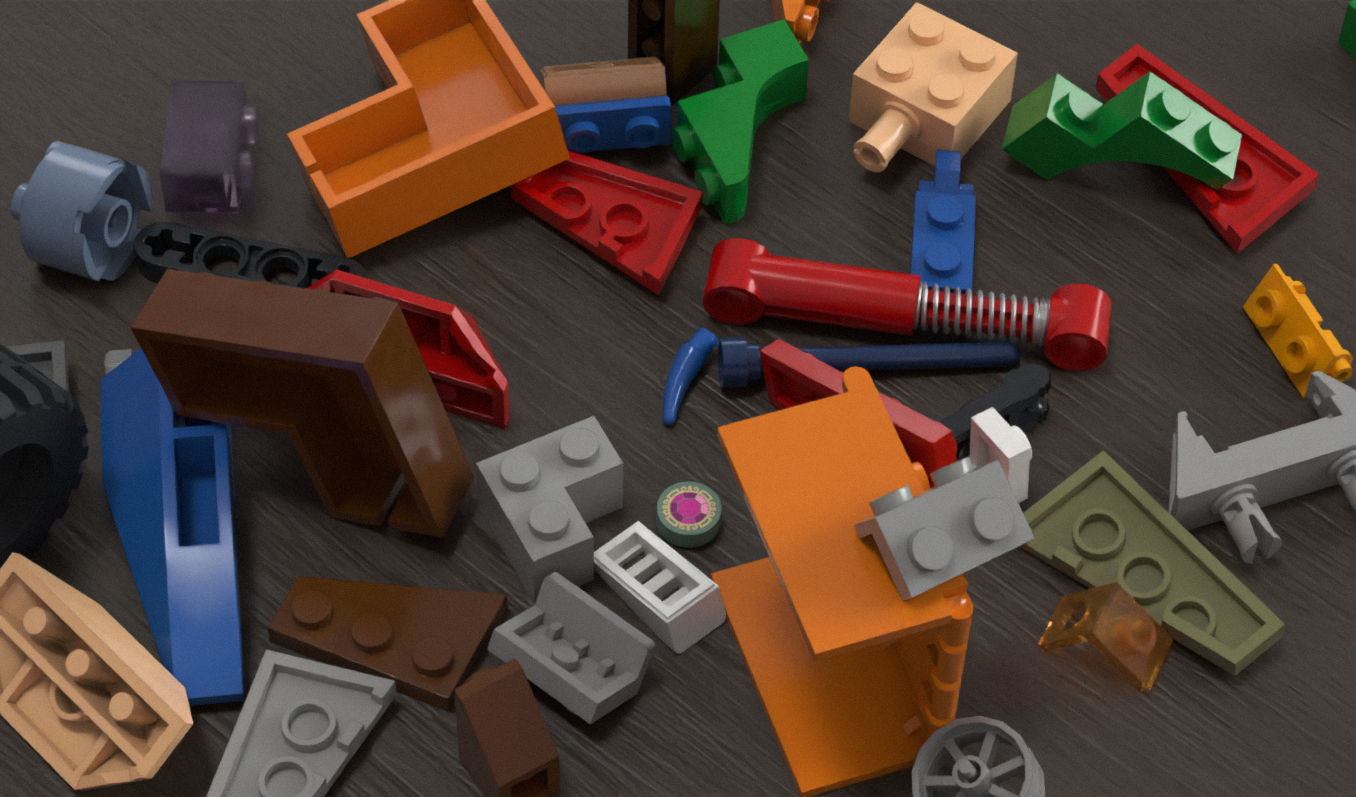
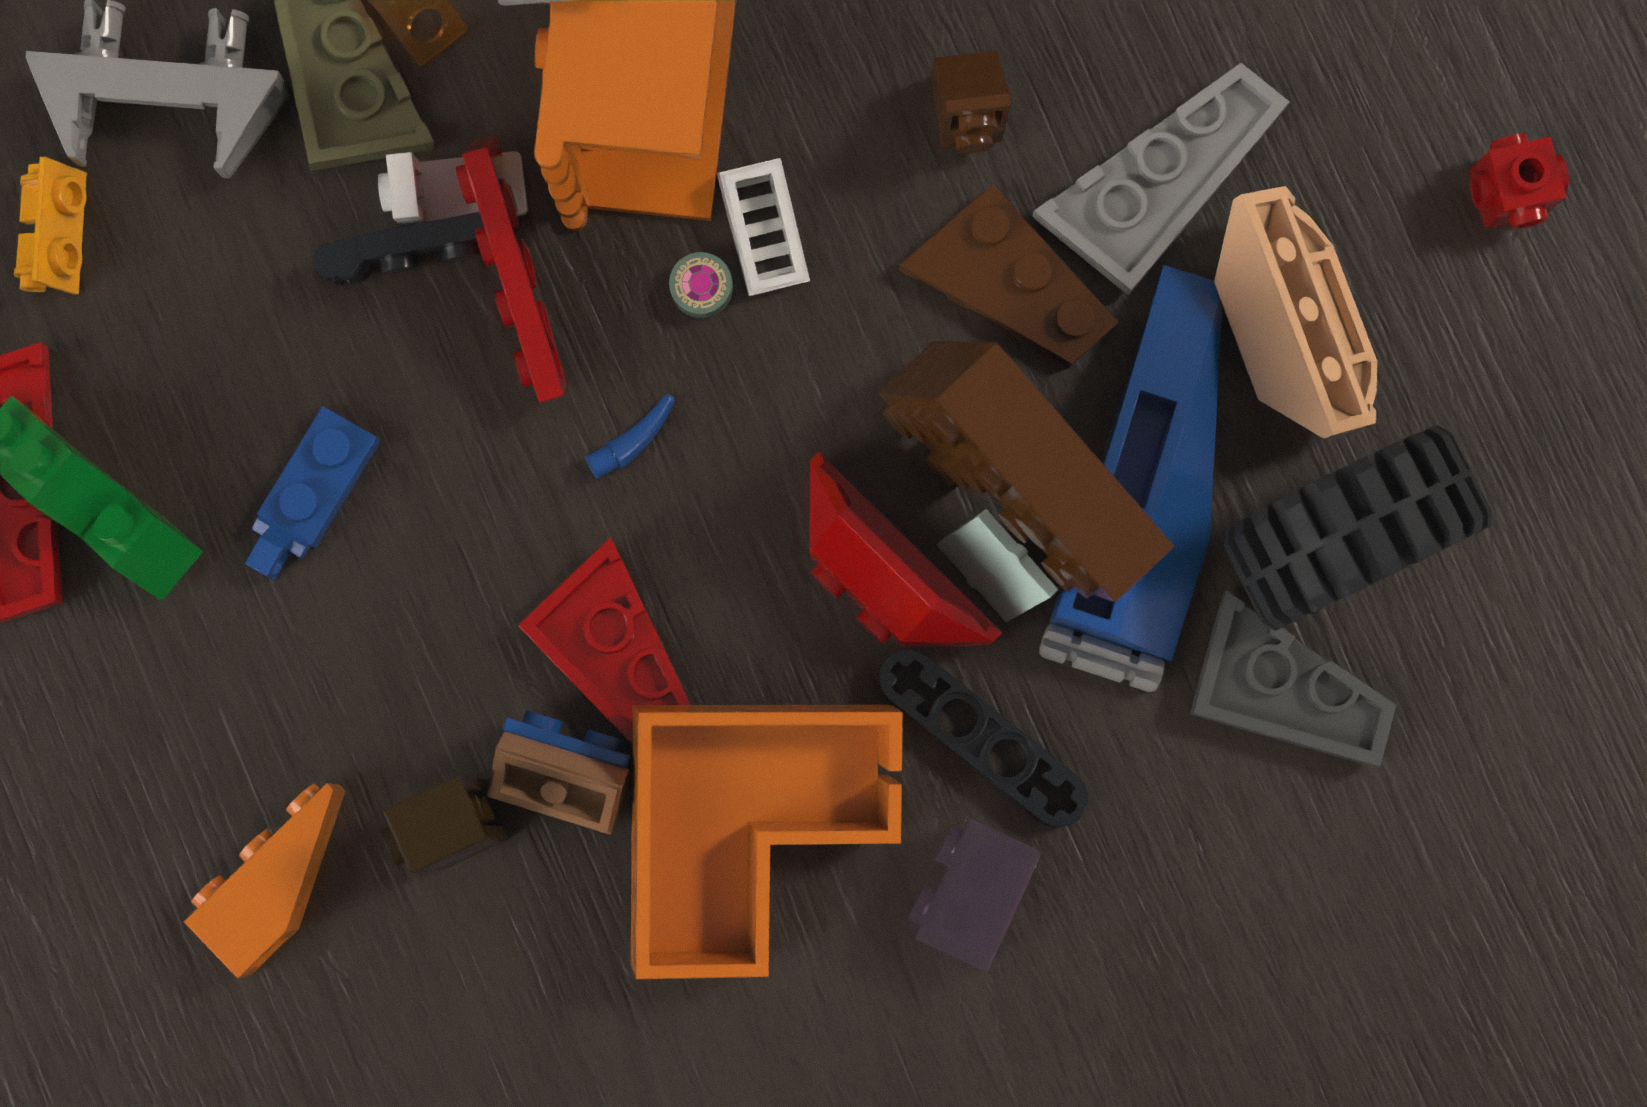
camera: 155 degrees left, 30 degrees up
(82, 211) = (1130, 849): sand blue brick -> none
(544, 497) = (835, 342): light grey brick -> none
(575, 649) = (871, 176): light grey bracket -> none
(717, 128) = (459, 696): green arch -> none
(742, 360) = (573, 419): dark blue piece -> none
(752, 283) = (398, 414): red piece -> none
(928, 89) = (235, 651): light nougat brick -> none

